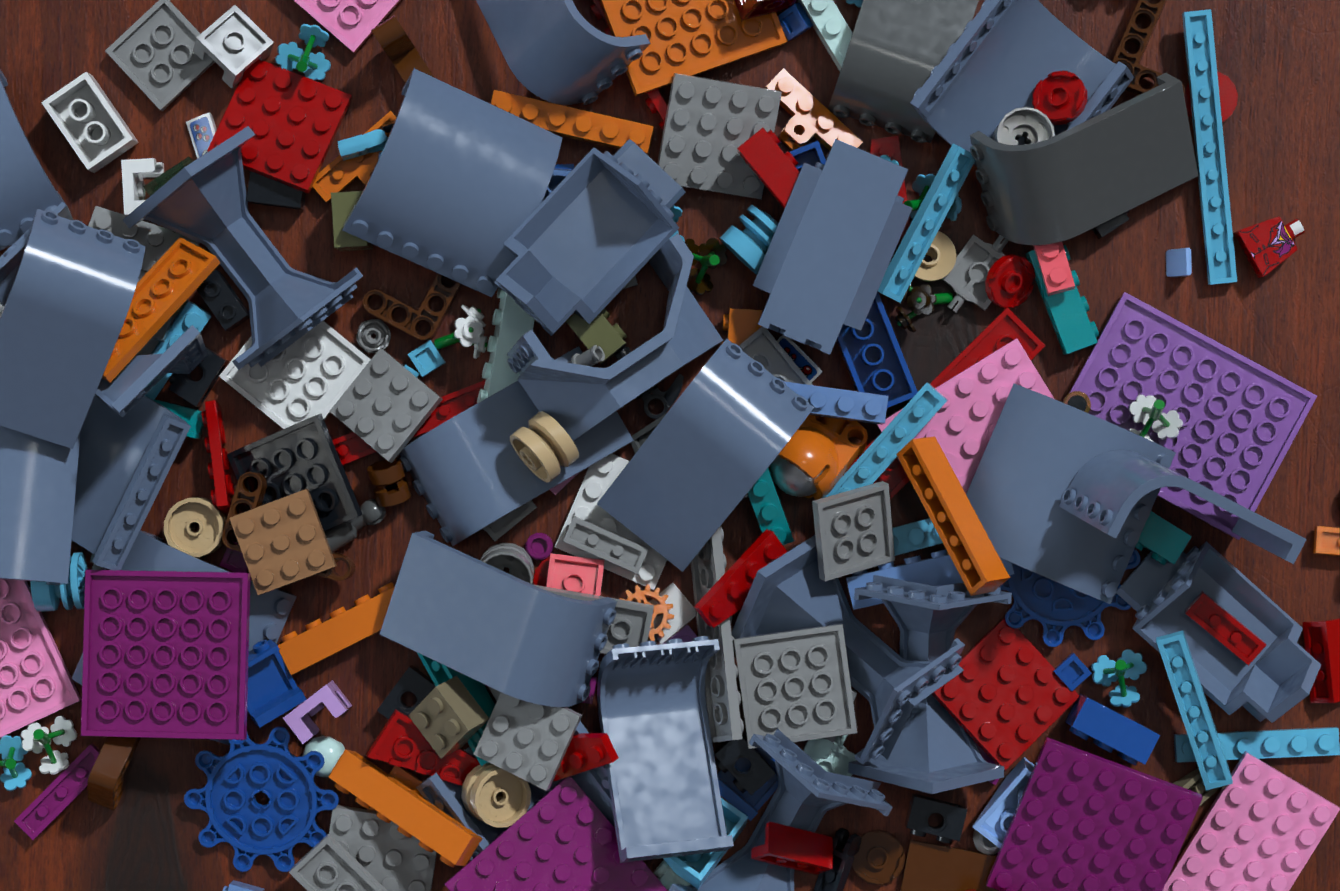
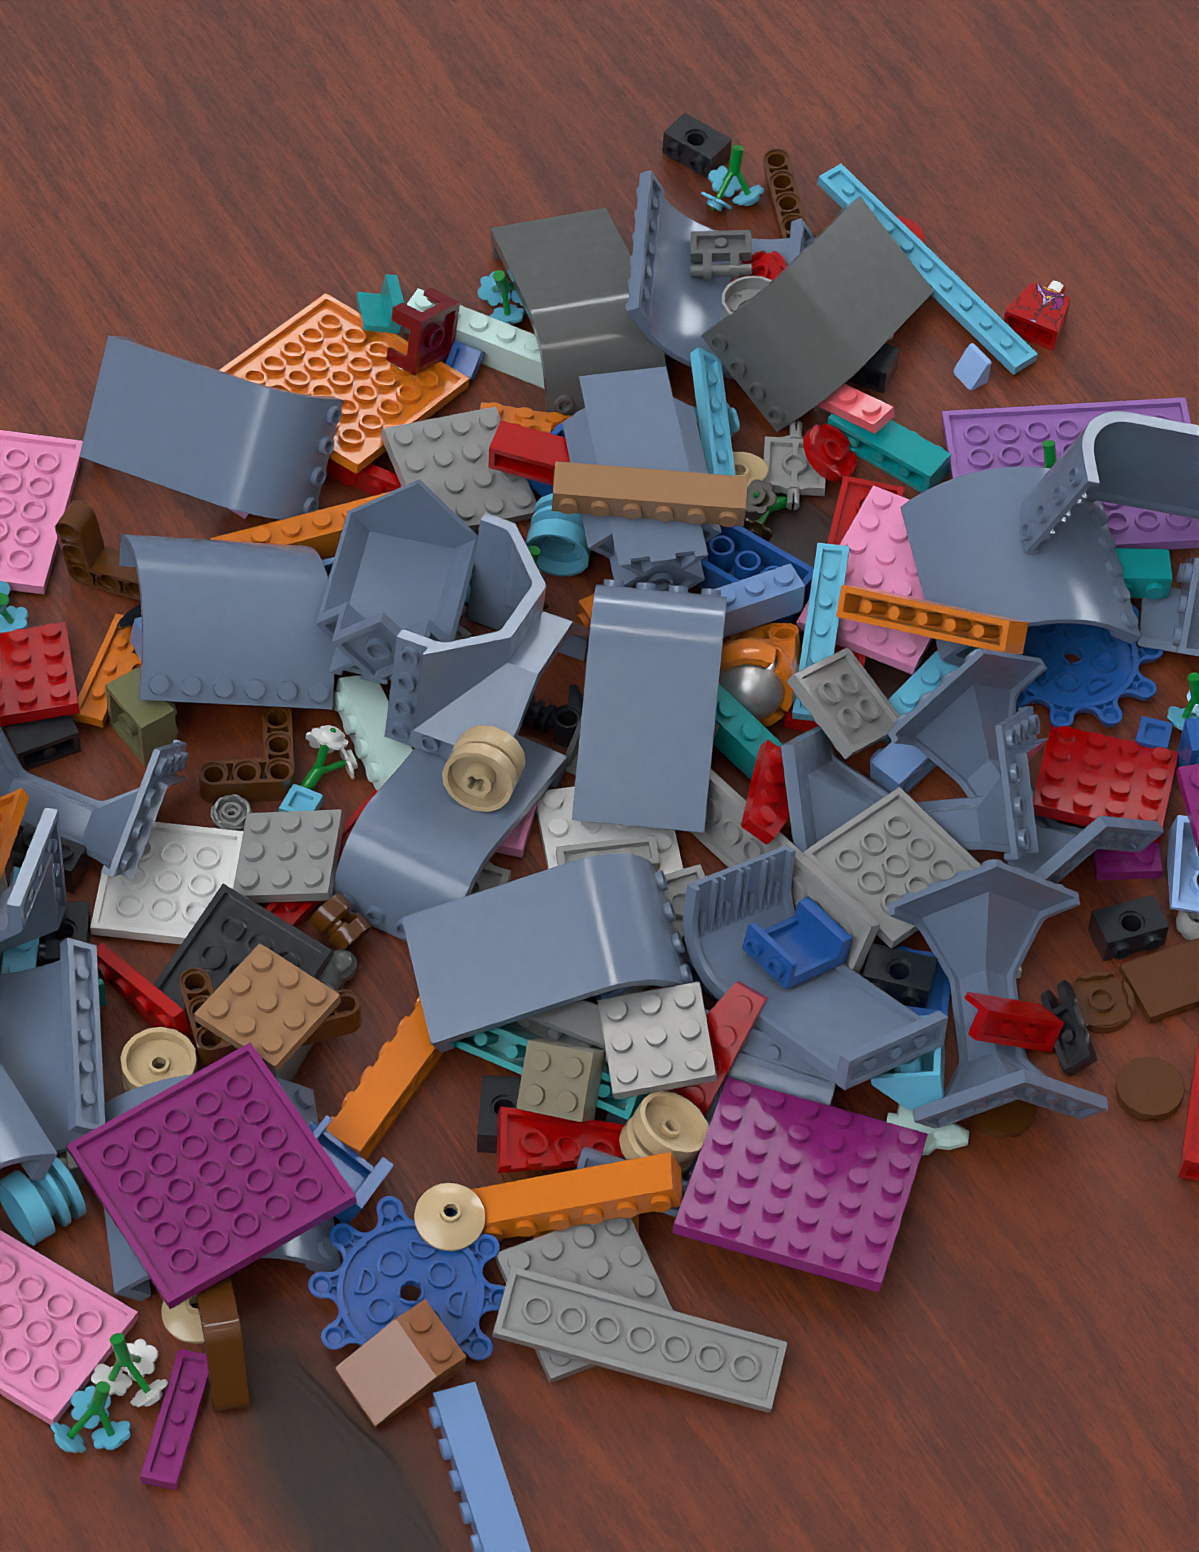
camera: 35 degrees left, 35 degrees down
(224, 849) = (401, 1363): none -> slope
(301, 722) = (410, 1165): lavender panel -> none
(322, 757) = (444, 1231): none -> tan dish
(362, 144) = (107, 647): medium azure bar -> none
(680, 708) = (799, 945): none -> blue panel
(815, 284) = (649, 494): none -> medium nougat brick
(1045, 53) = (721, 246): none -> dark grey plate

